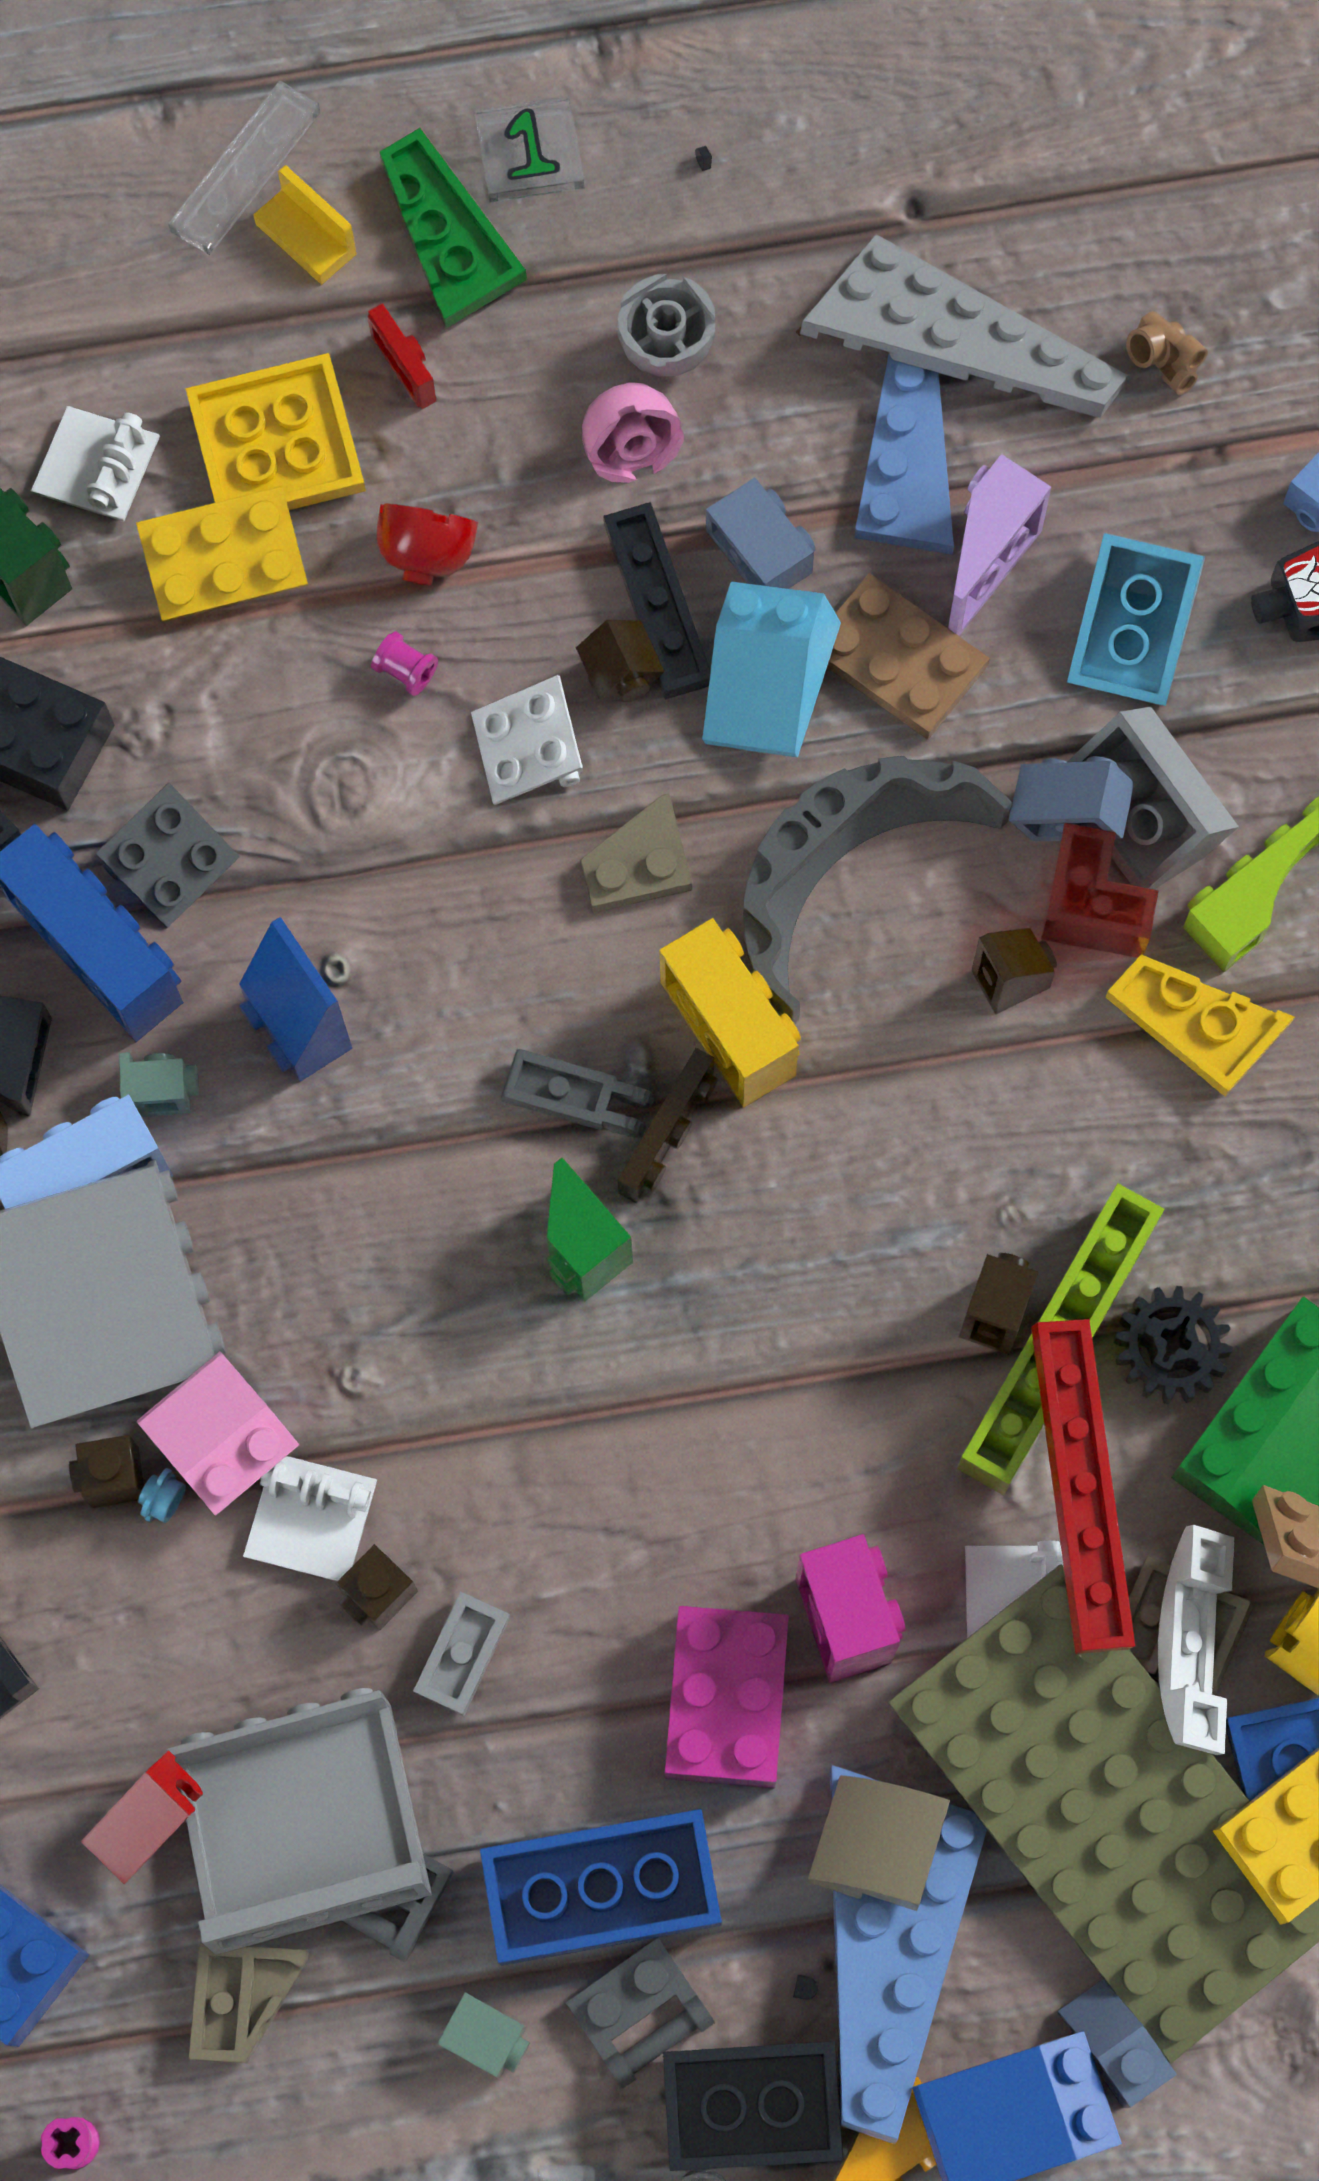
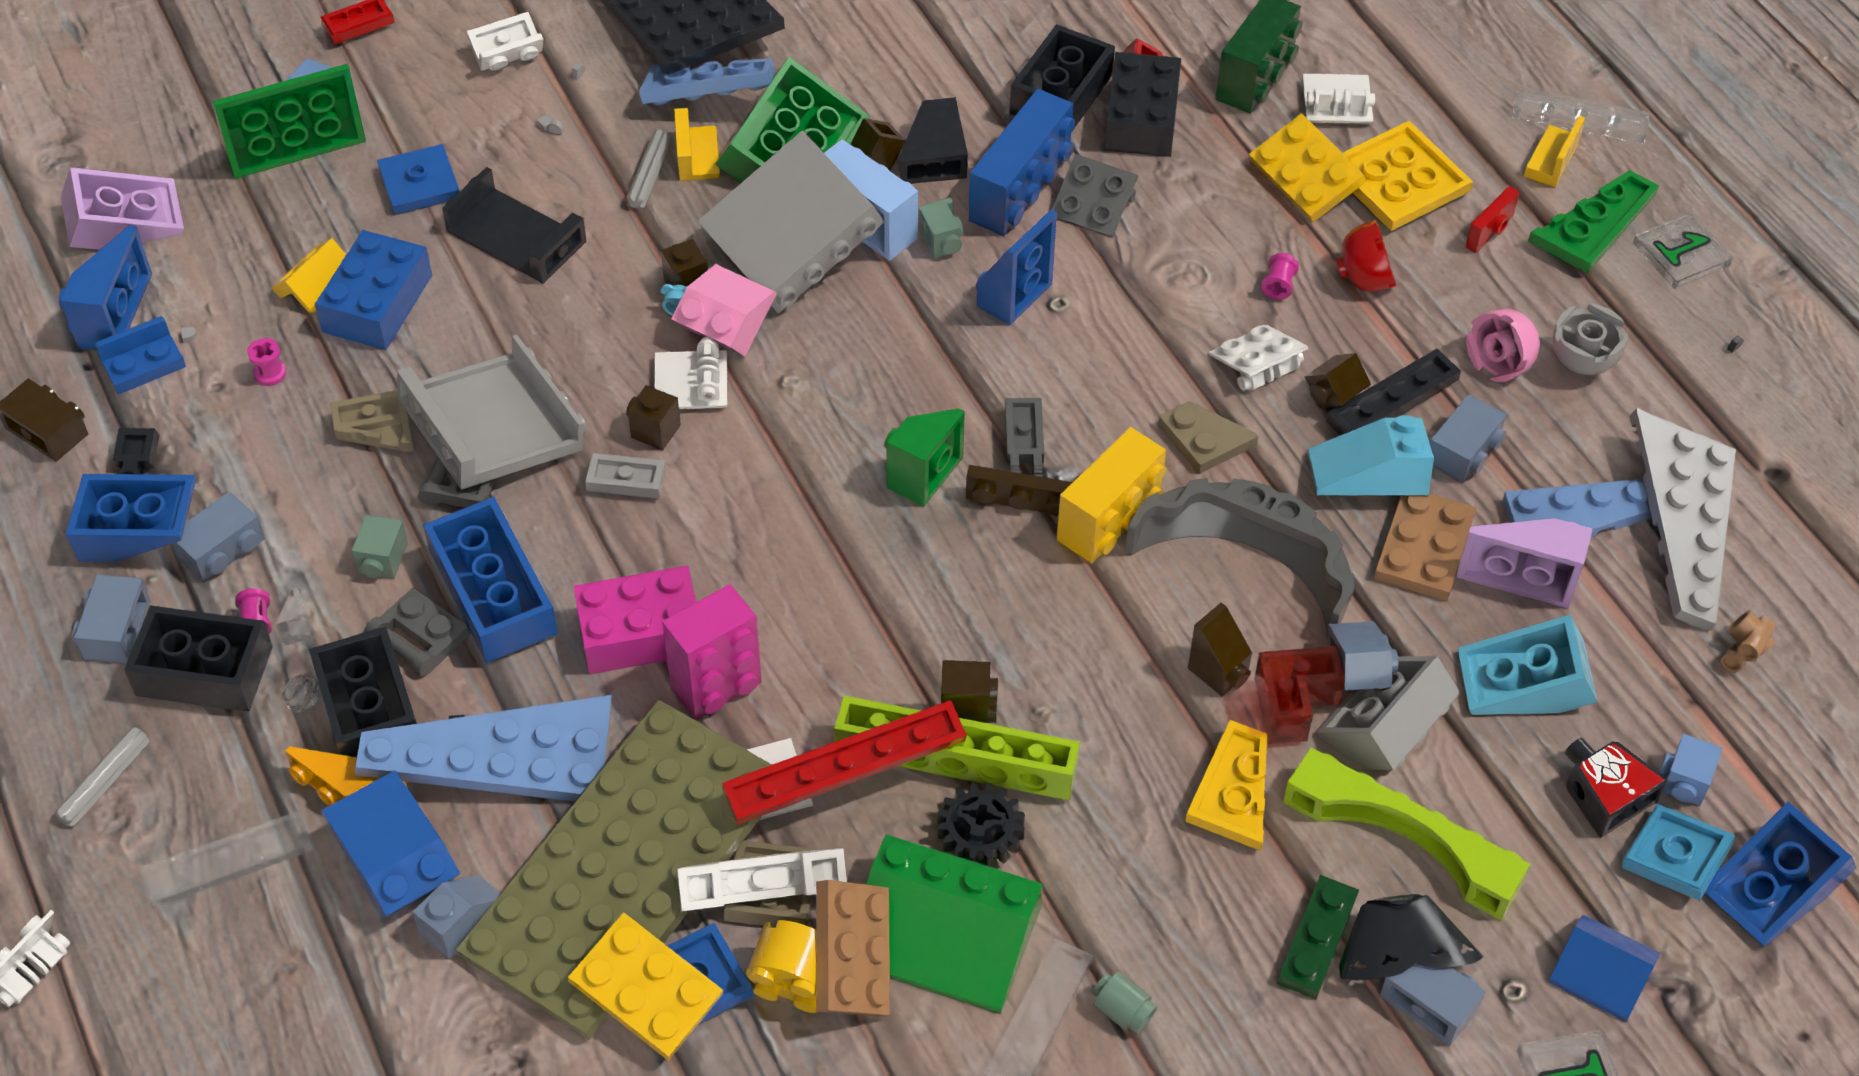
camera: 70 degrees right, 20 degrees down
(143, 1818) = (473, 330): hinge -> none
(879, 1841) = (561, 722): dark tan slope -> none

